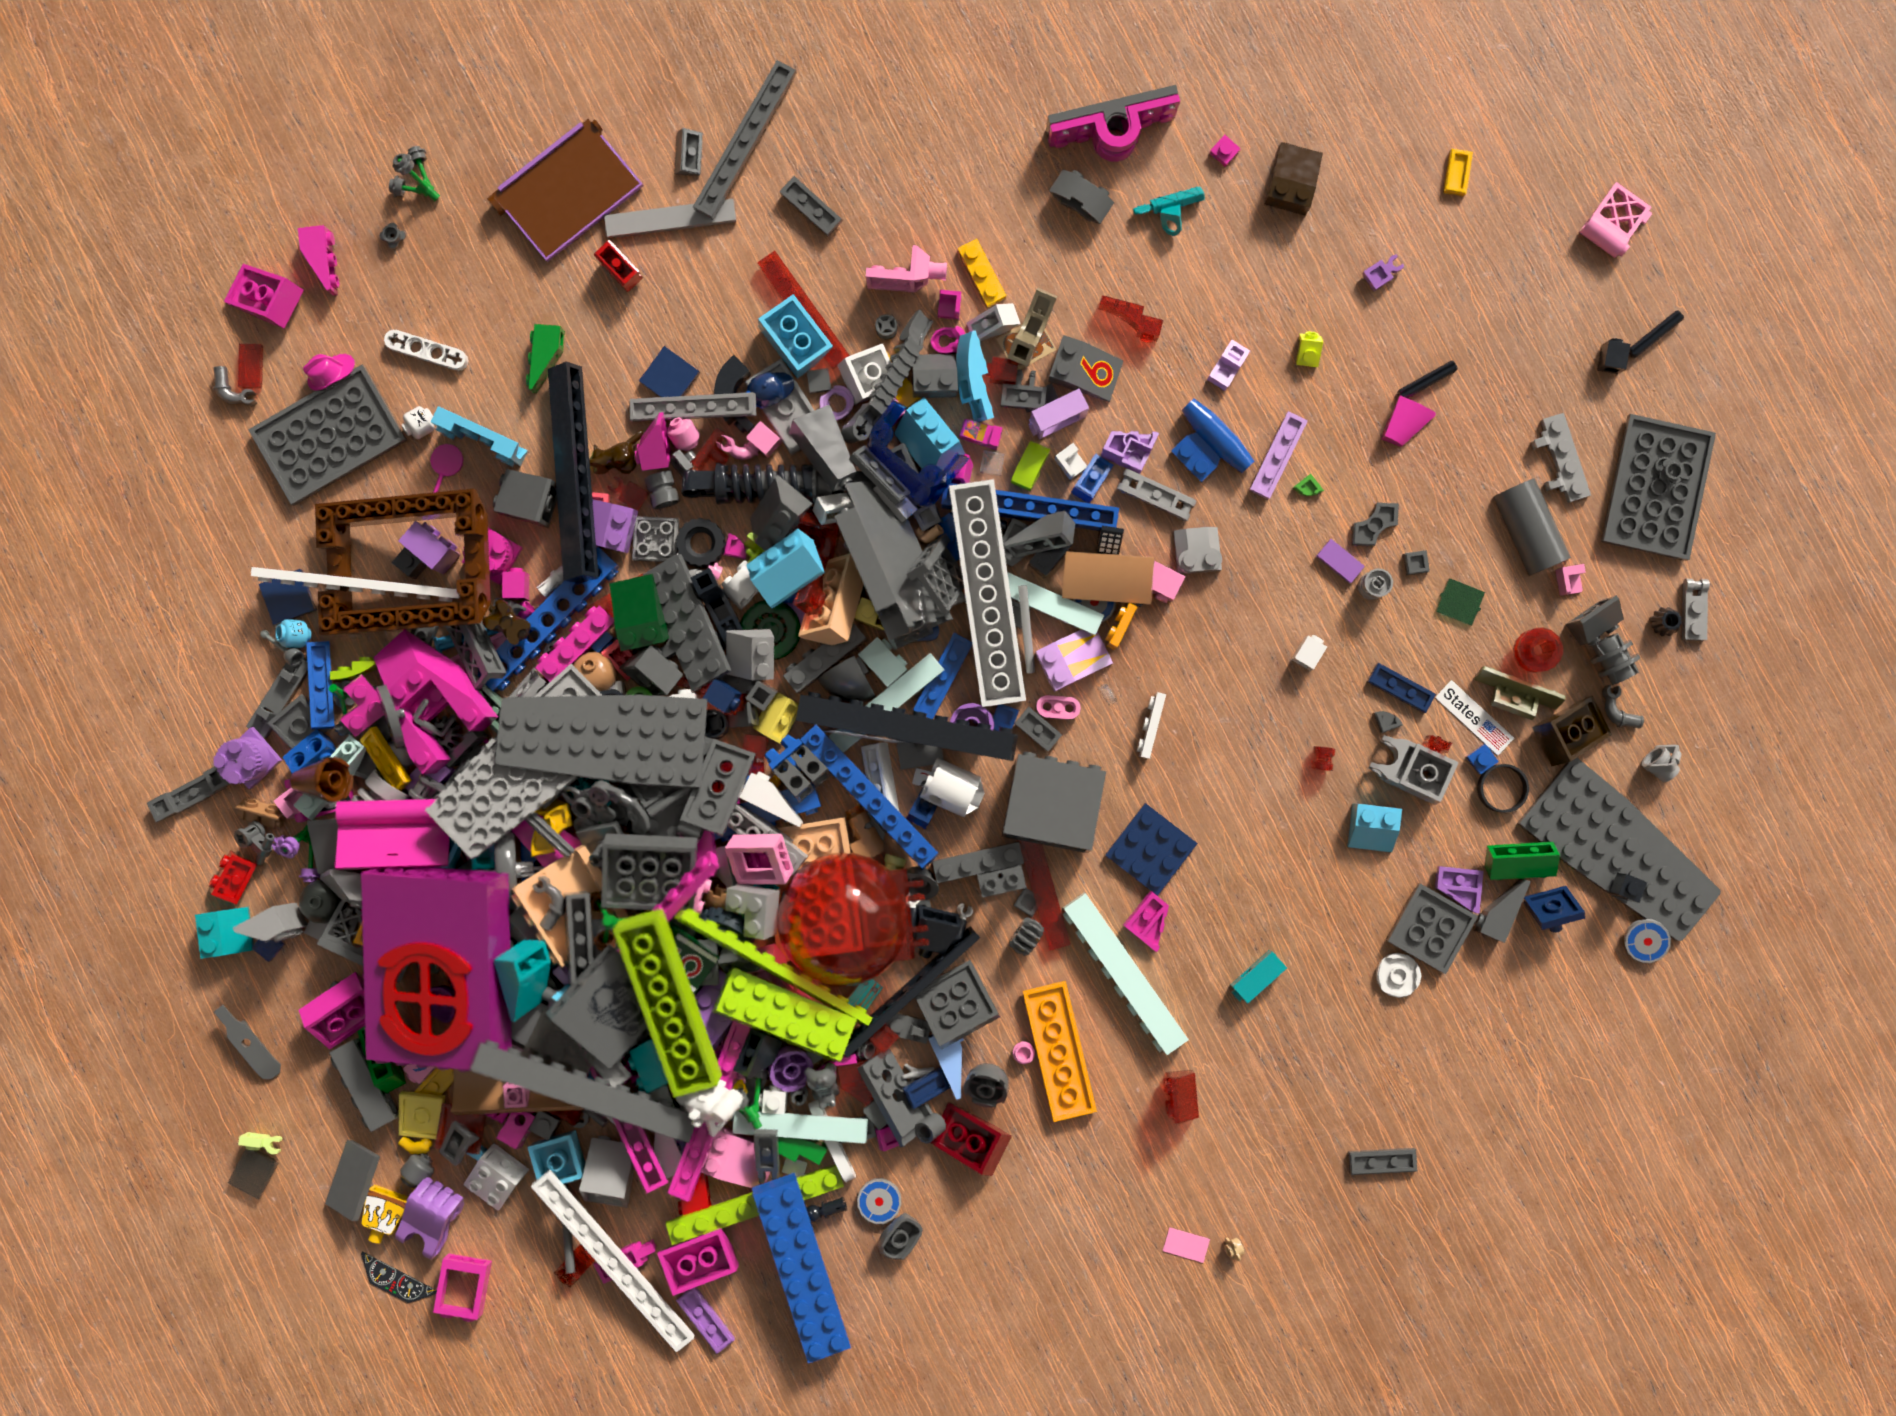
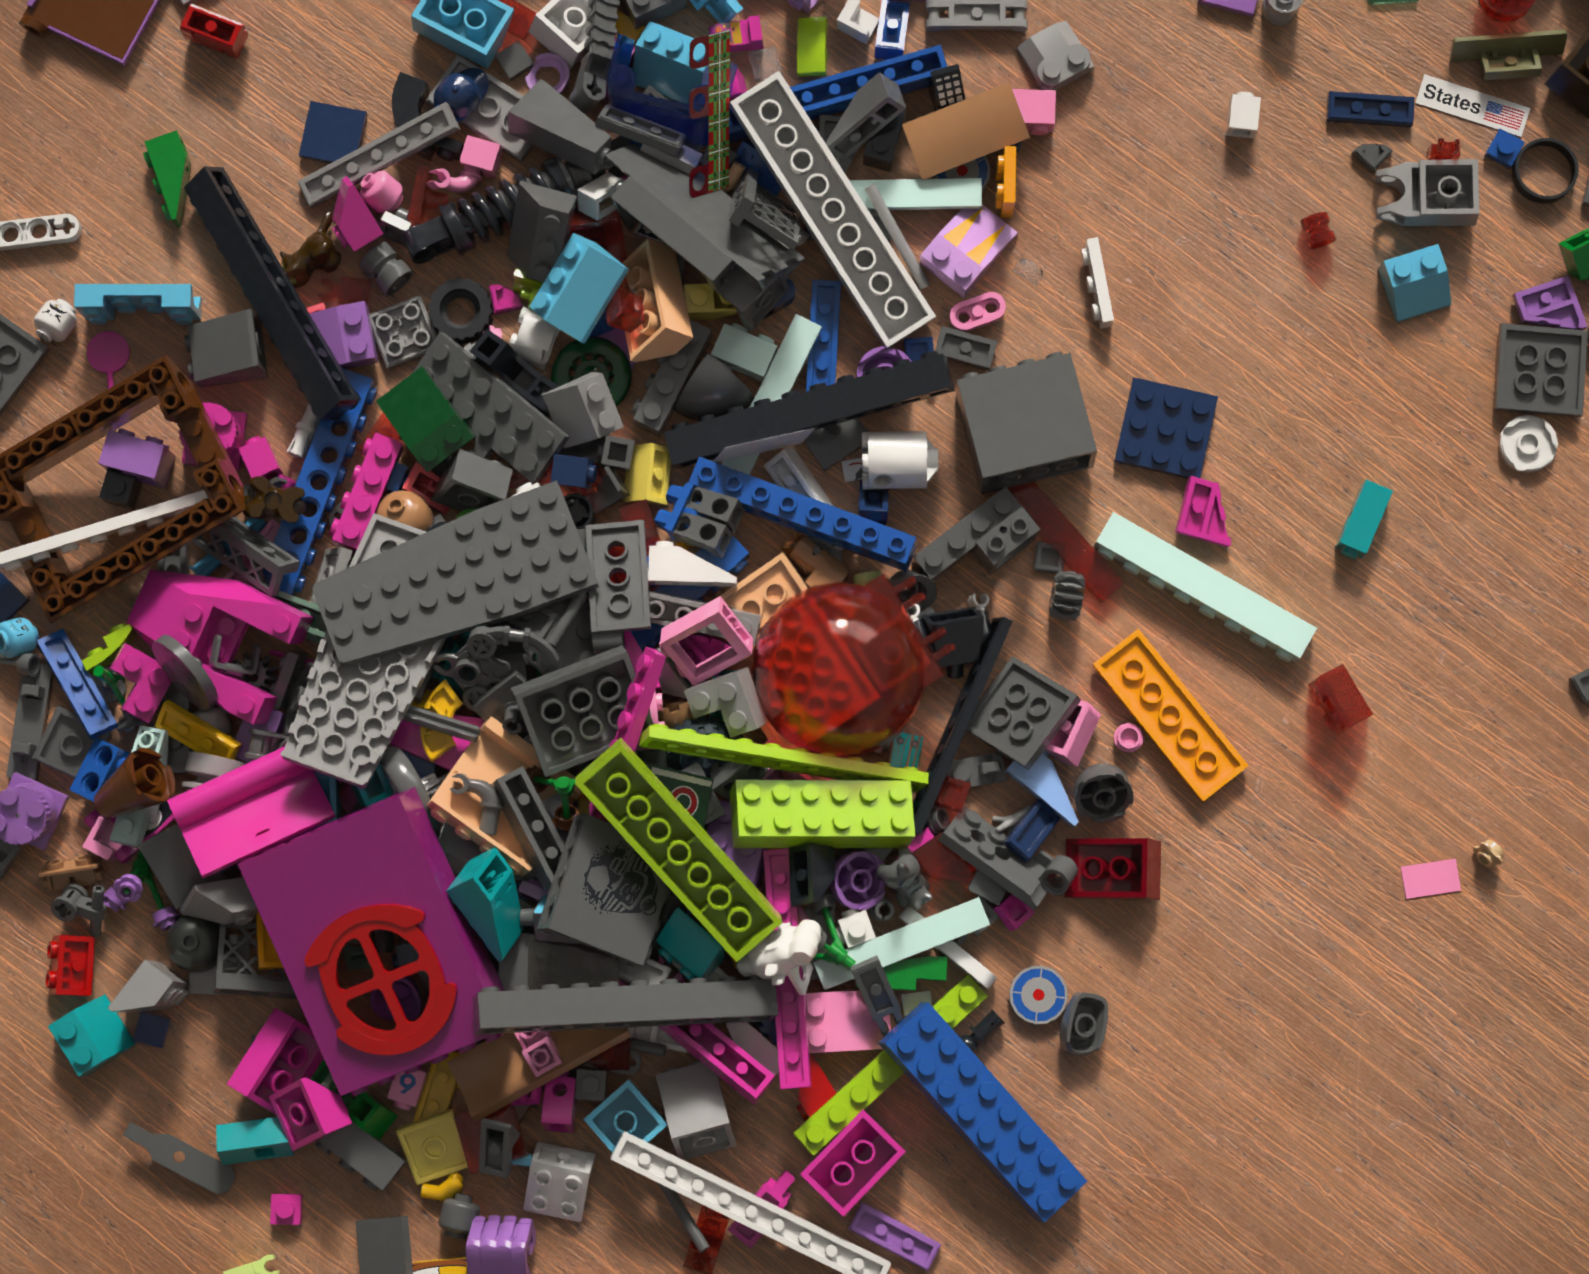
camera: 25 degrees left, 5 degrees down
(302, 1055) = (251, 1141): none -> teal brick
(304, 1110) = (286, 1209): none -> dark pink plate
(342, 1059) = (309, 1112): none -> dark pink slope
(937, 486) = (716, 107): none -> piece
(987, 1036) = (1074, 735): none -> bright pink brick

